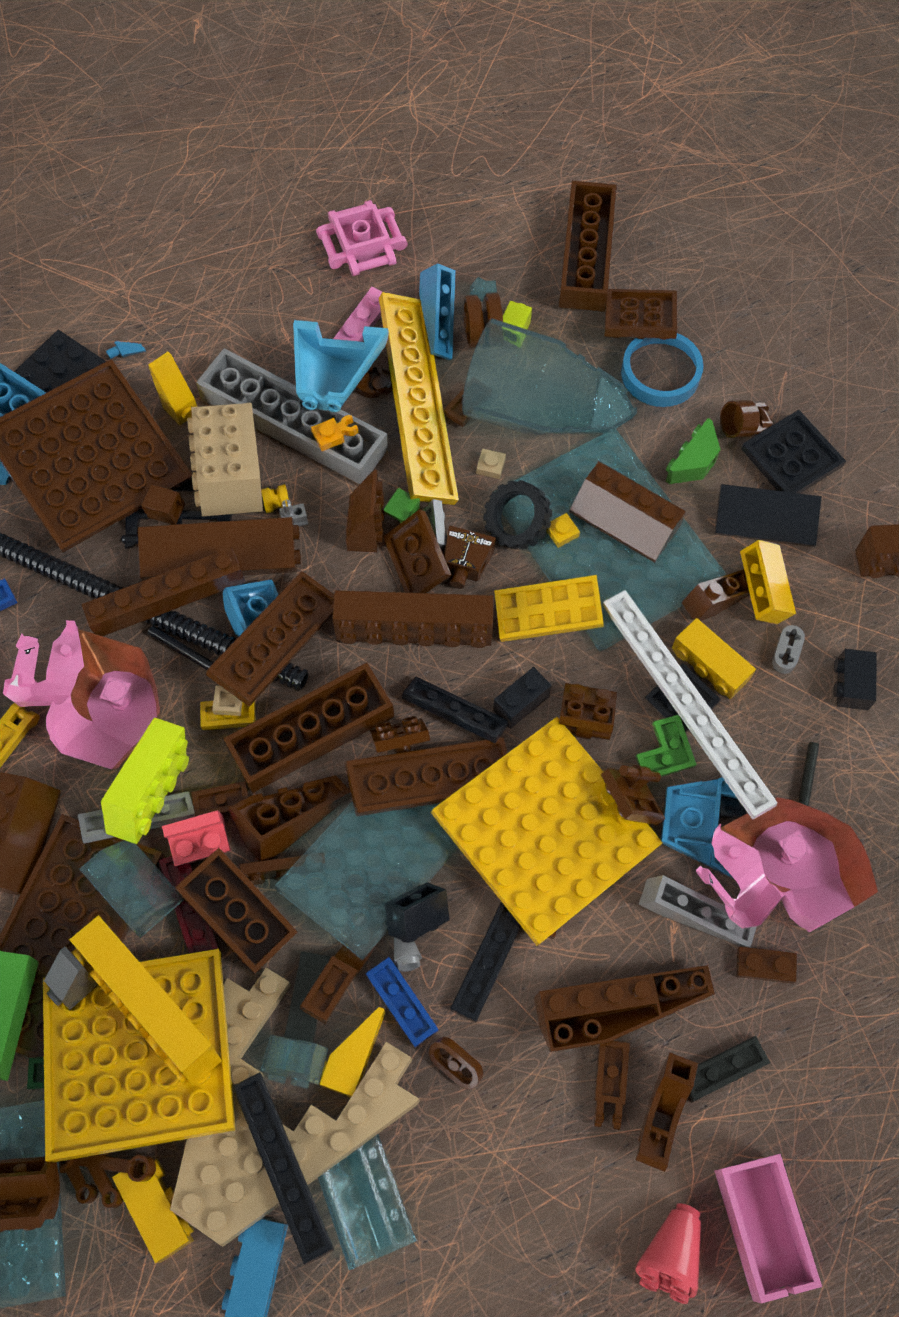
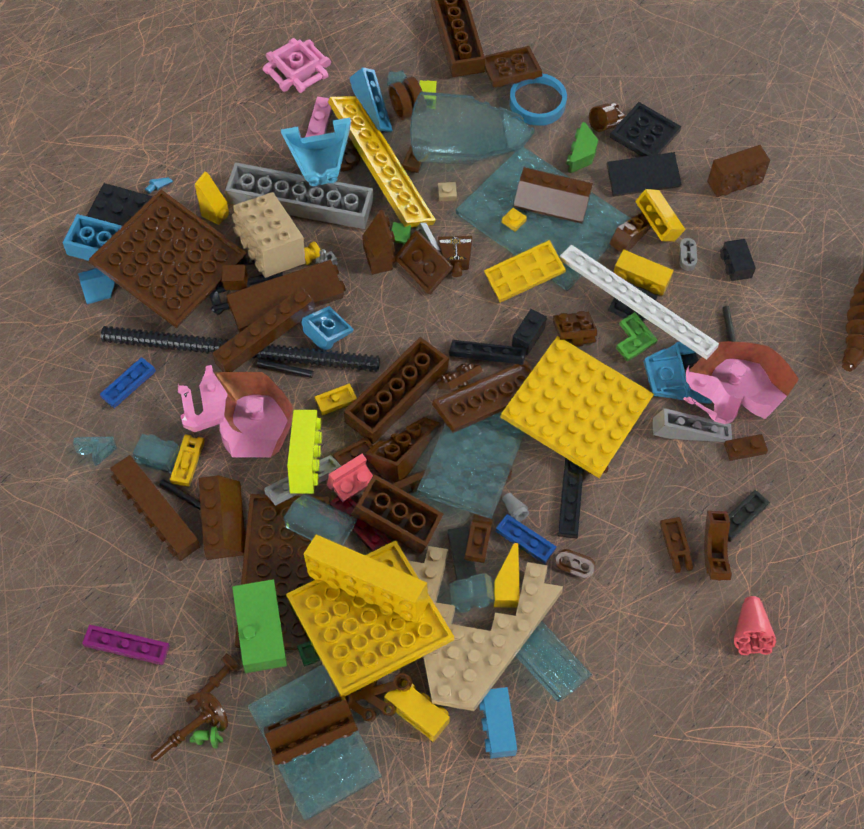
camera: 20 degrees left, 5 degrees down
(68, 980) = (308, 583): dark grey slope -> none
(226, 703) = (335, 388): tan plate -> none
(273, 639) = (351, 339): reddish brown plate -> none
(283, 1169) = (495, 650): black tile -> none
(331, 433) = (335, 198): light orange plate -> none
(413, 618) = (438, 301): reddish brown brick -> none
(417, 912) = (516, 479): black brick -> none
(495, 508) = (469, 204): black tyre -> none
(616, 1007) = (662, 497): reddish brown wedge -> none
(632, 794) = (621, 365): reddish brown plate -> none
(767, 1229) = (803, 592): bright pink piece -> none

